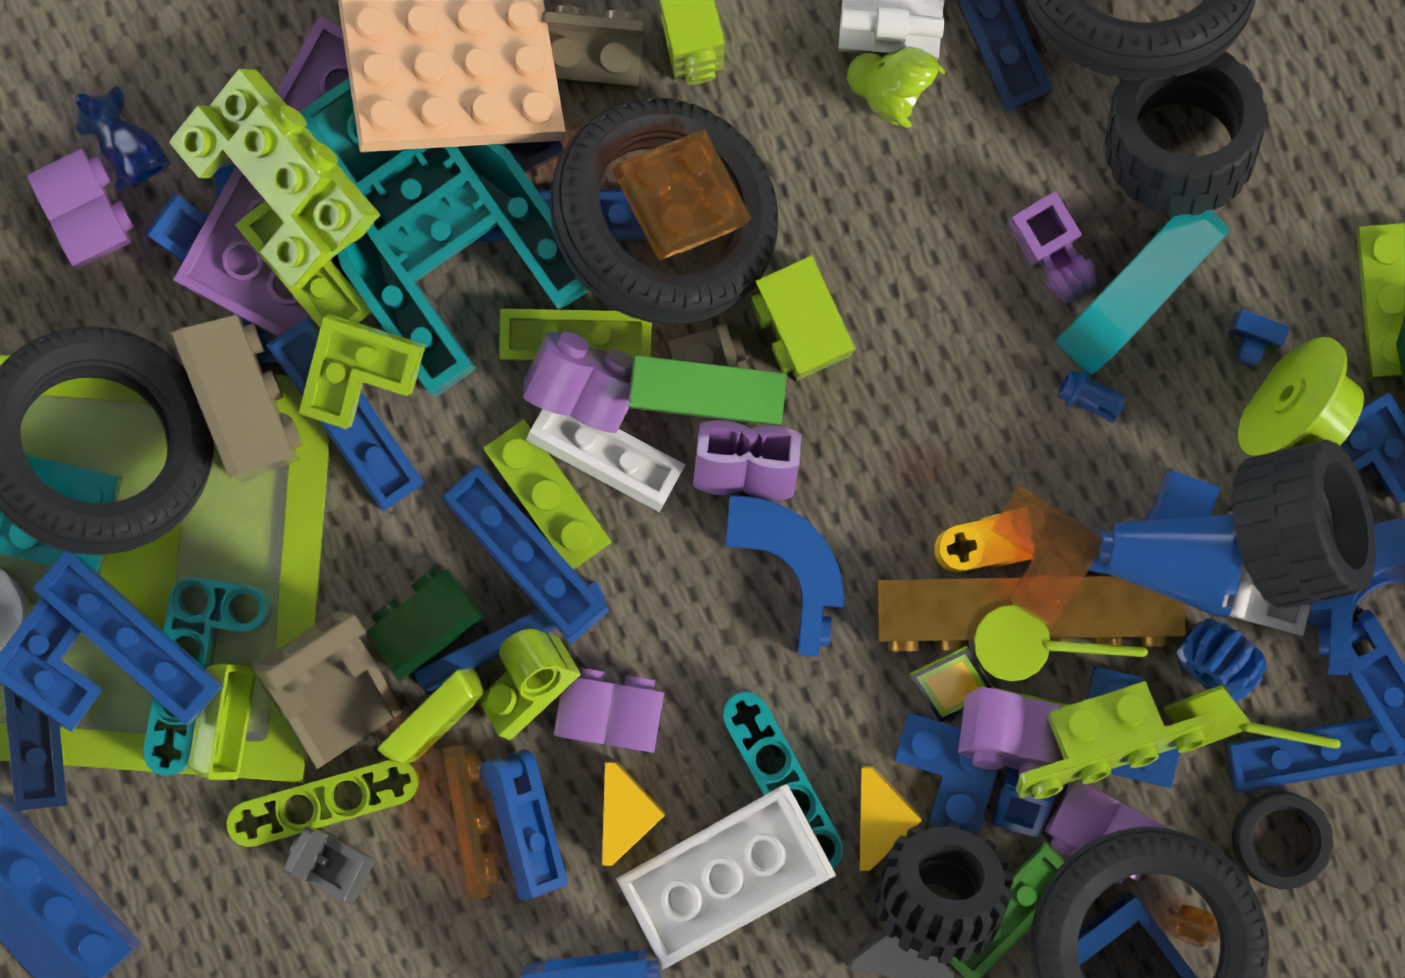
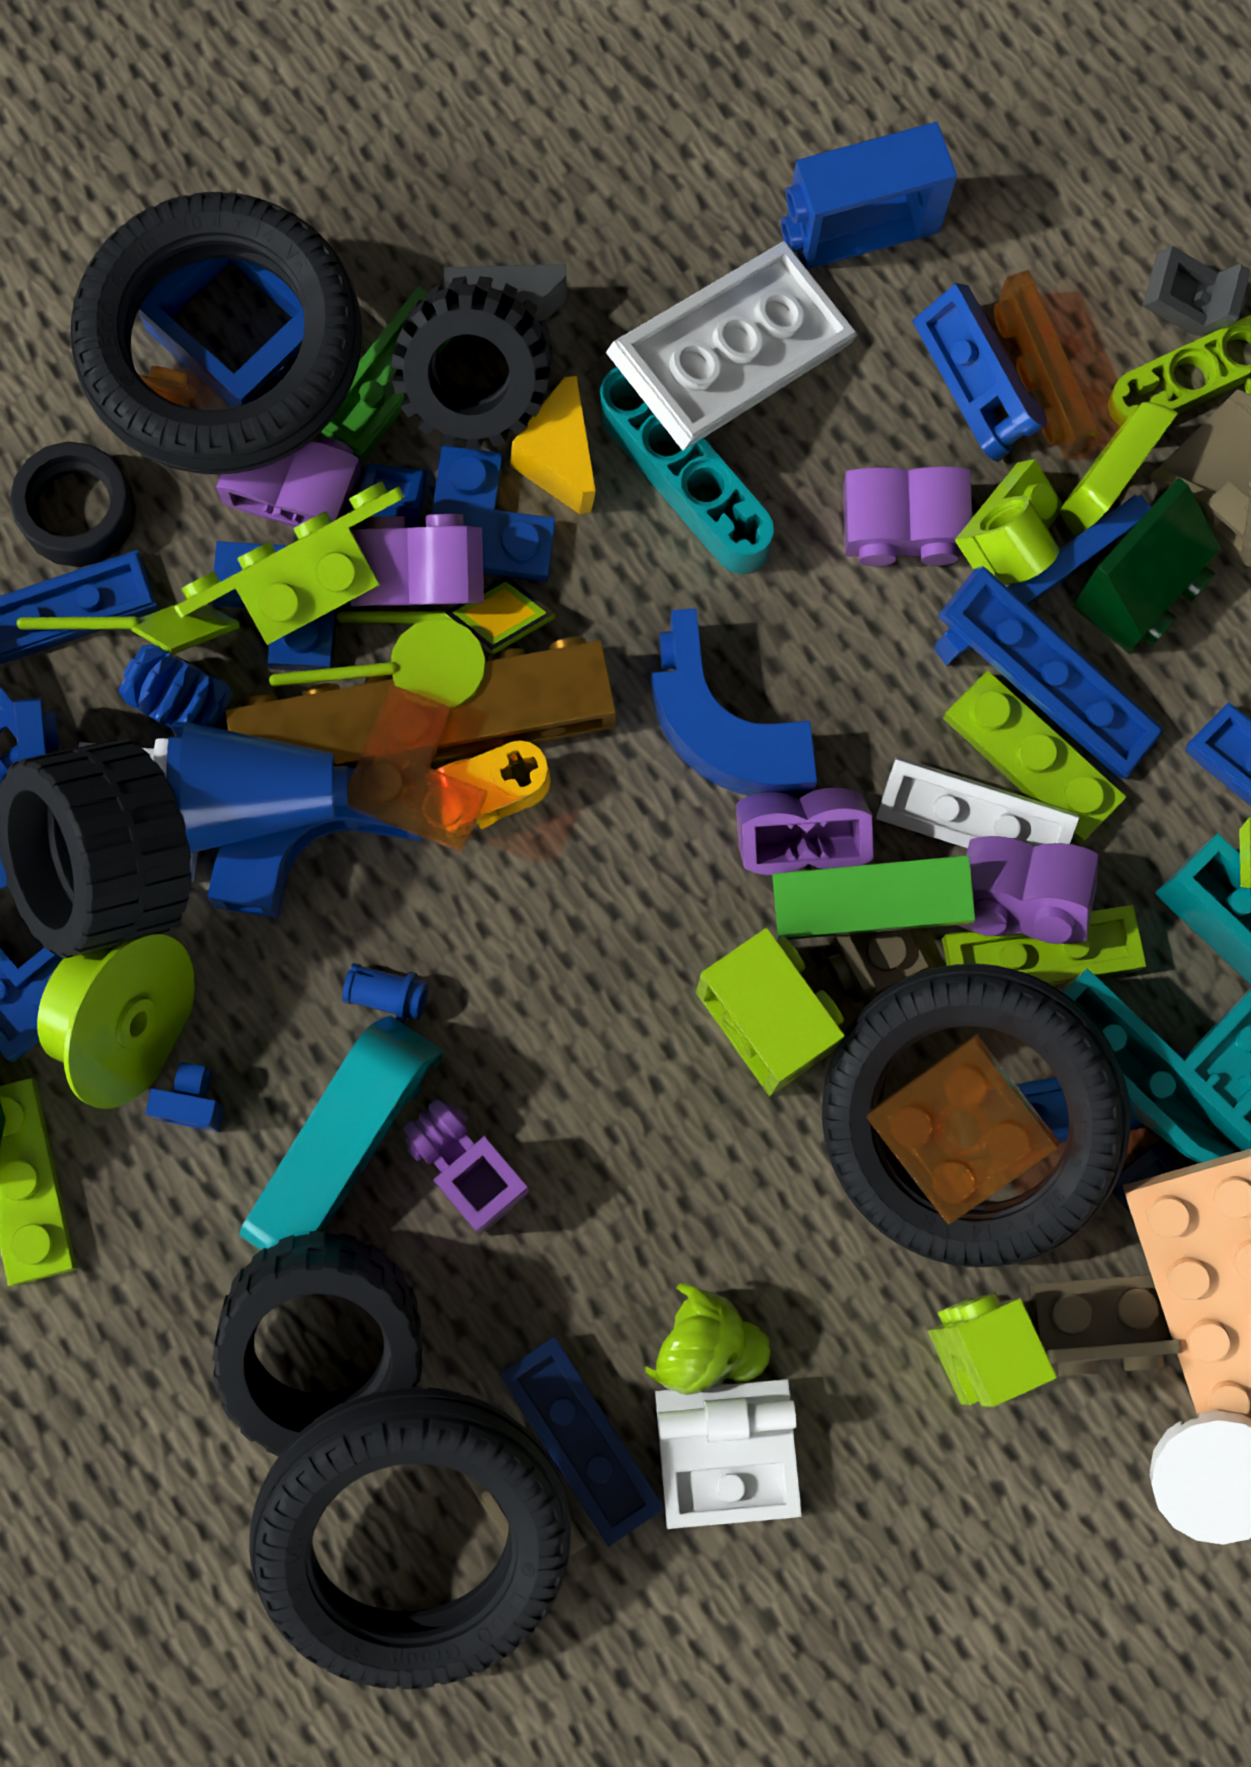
camera: 170 degrees right, 10 degrees down
(627, 813) = (862, 406): yellow slope -> none

